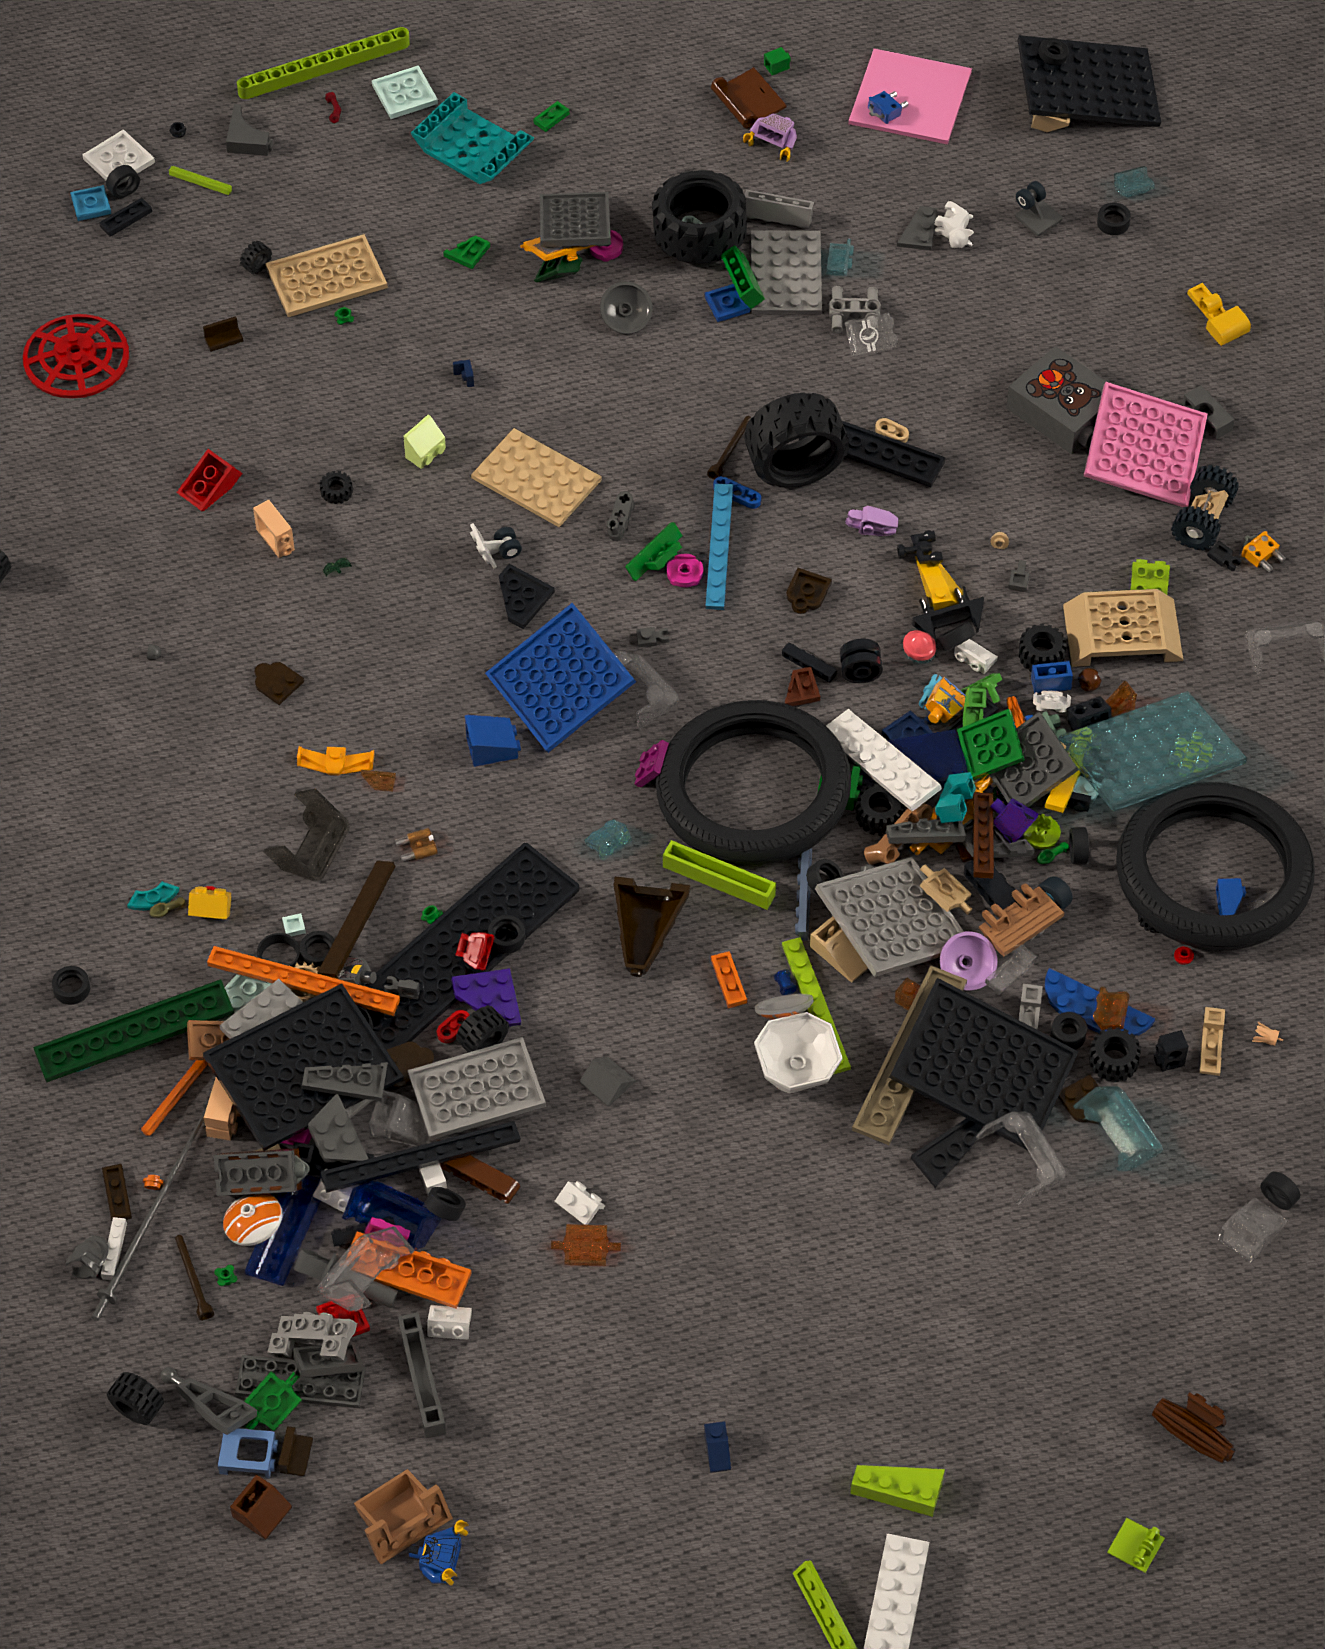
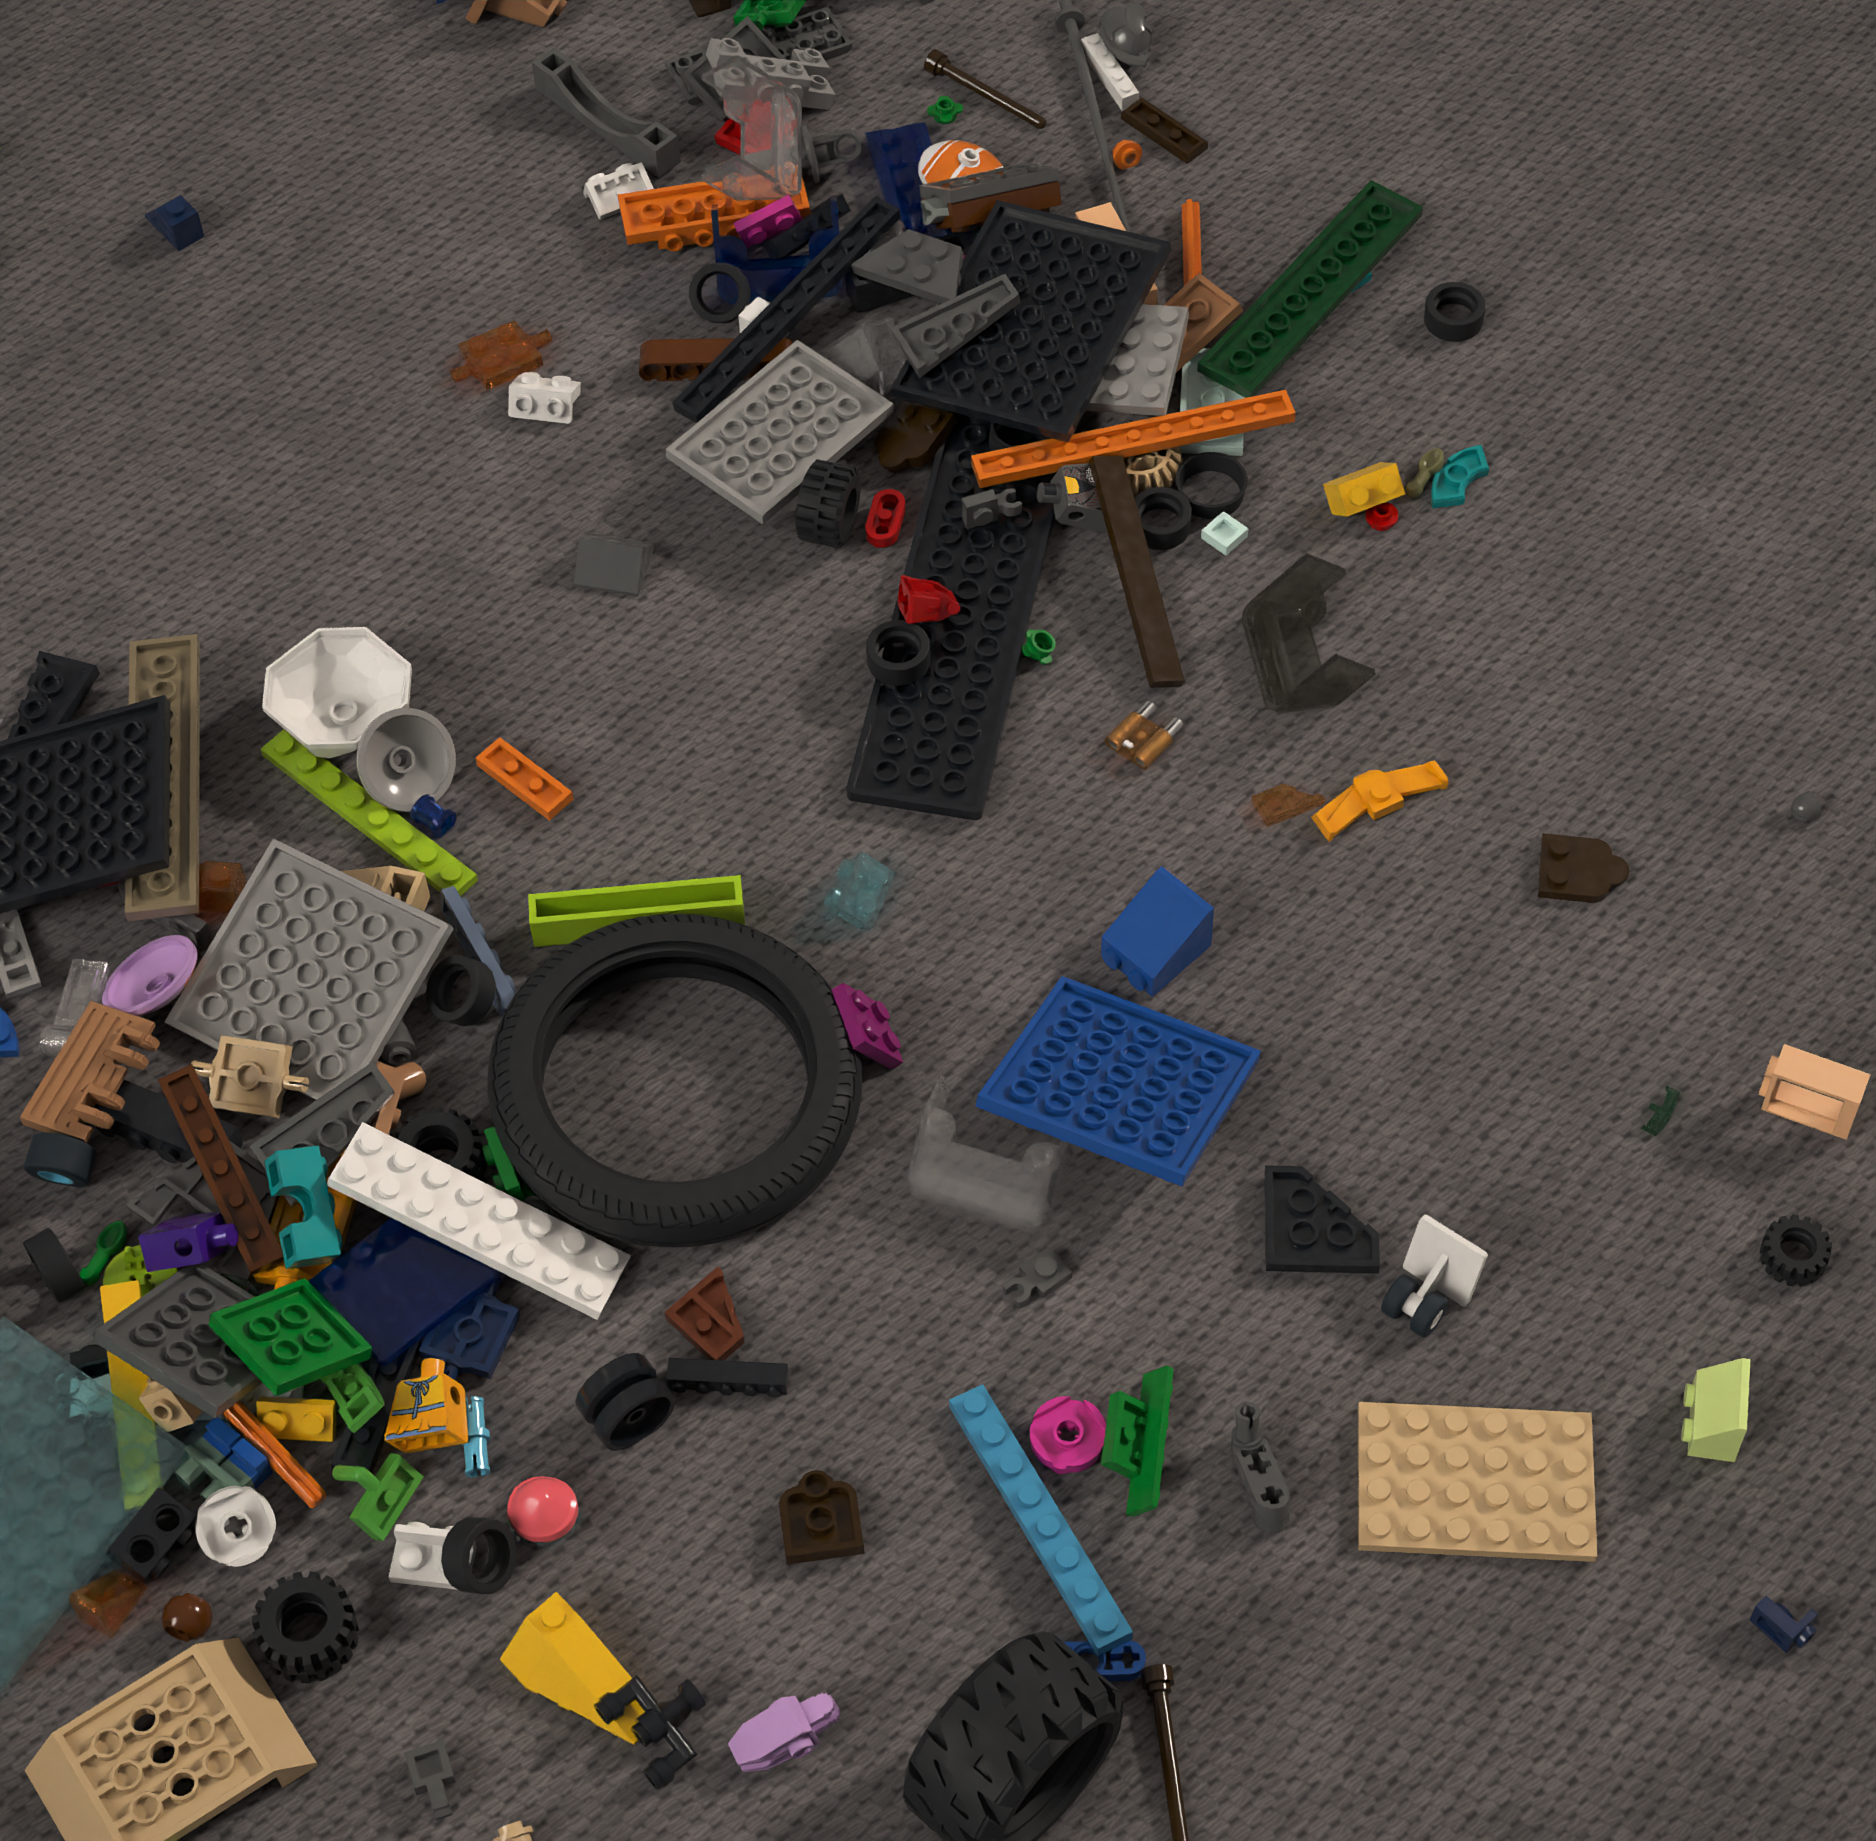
camera: 150 degrees right, 0 degrees up
(490, 989) = (862, 576): dark purple plate -> none
(646, 920) = (706, 787): dark brown cone -> none
(950, 615) = (559, 1569): black hose -> none
(1051, 677) = (254, 1569): blue brick -> none

